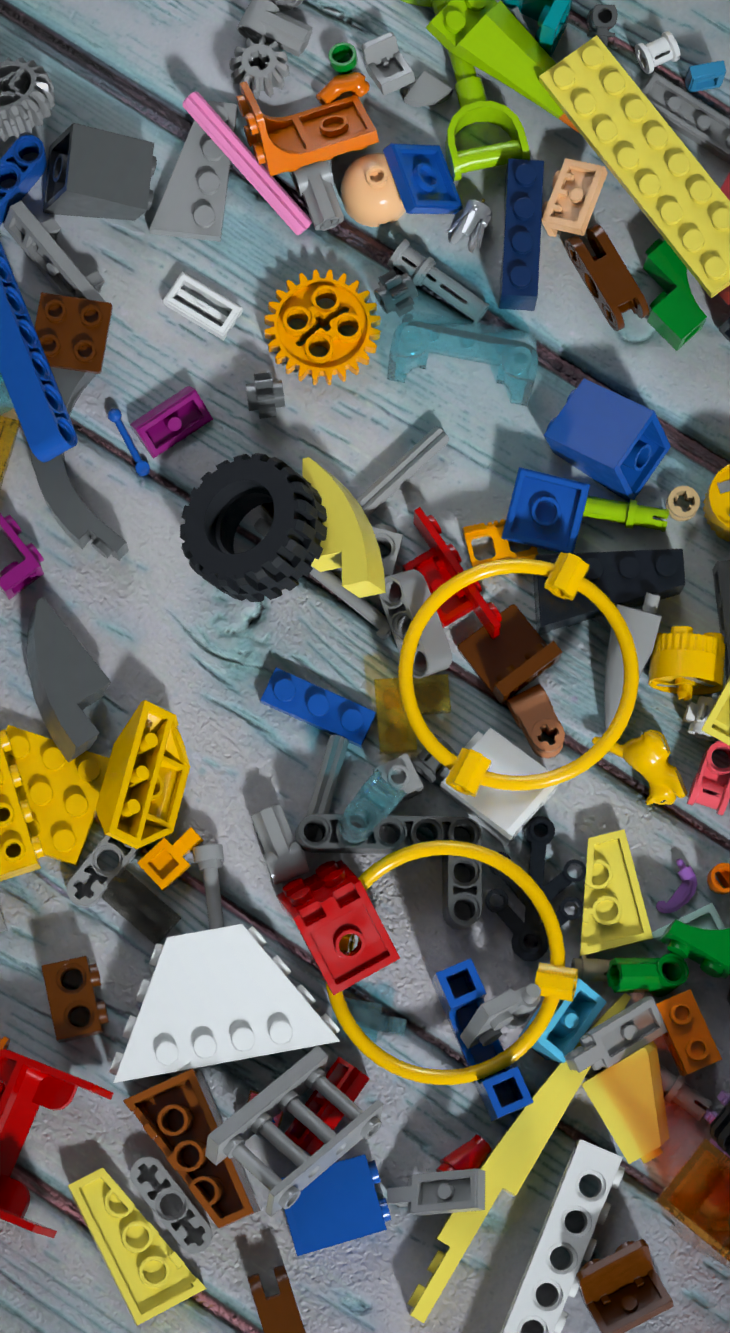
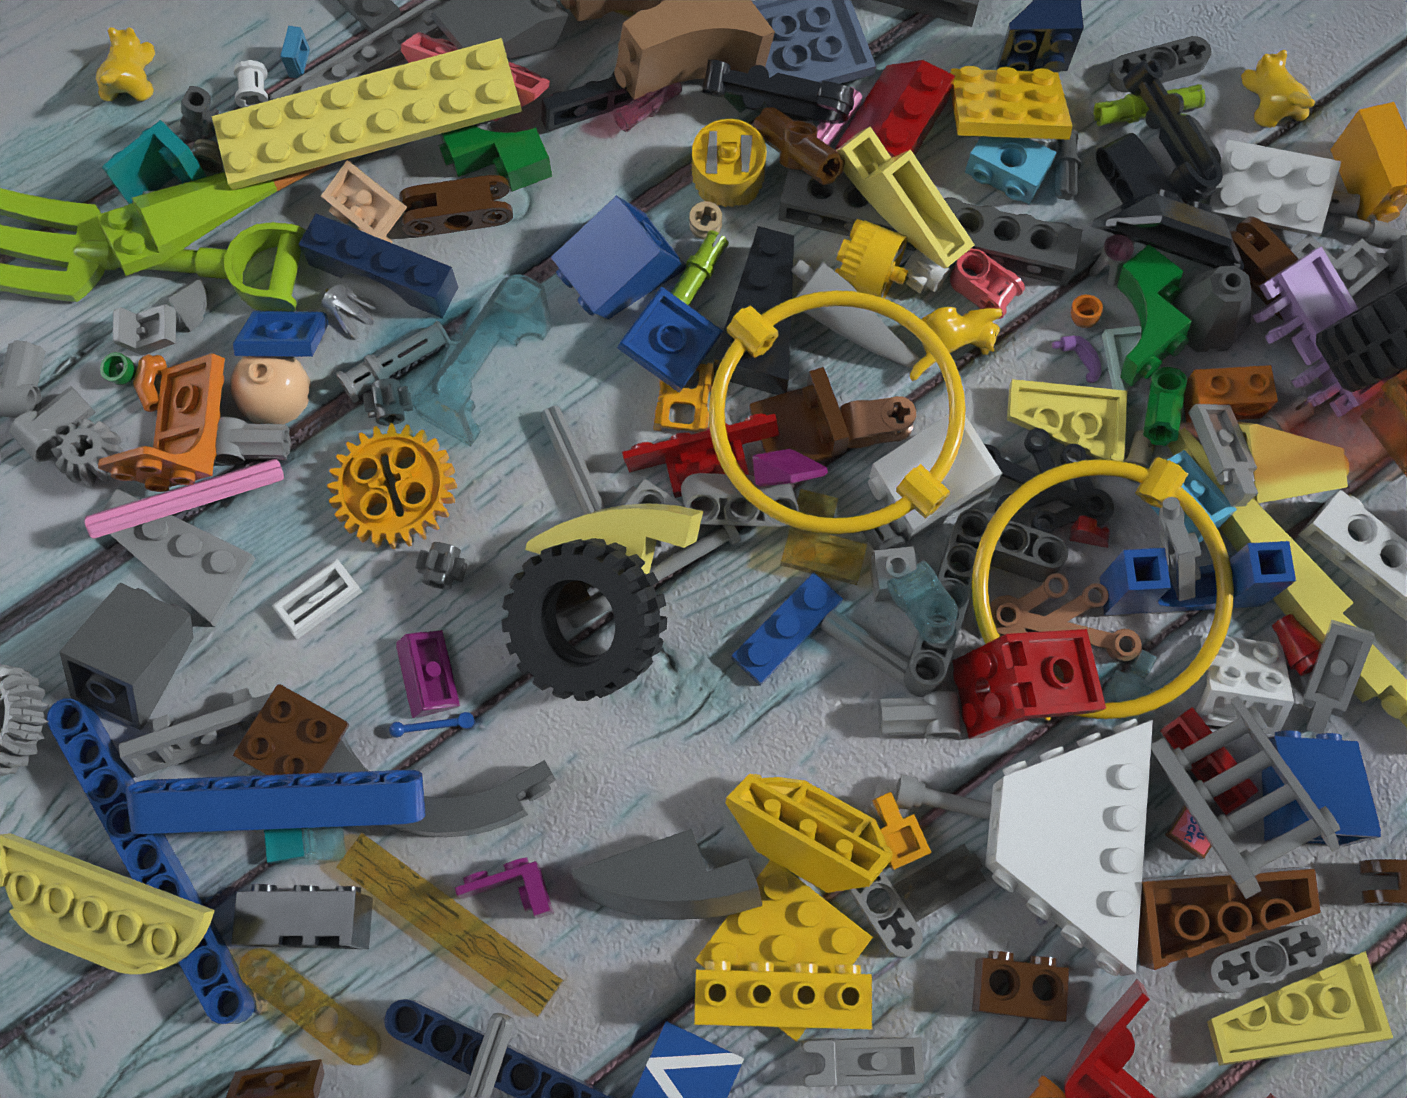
camera: 65 degrees left, 5 degrees down
(405, 938) = (1059, 618): none -> nougat plant
(415, 1121) = (1253, 673): none -> white bracket
(453, 651) = (785, 468): none -> magenta slope
(503, 943) = (1087, 532): none -> red tile
(571, 42) = (208, 155): none -> dark tan bush

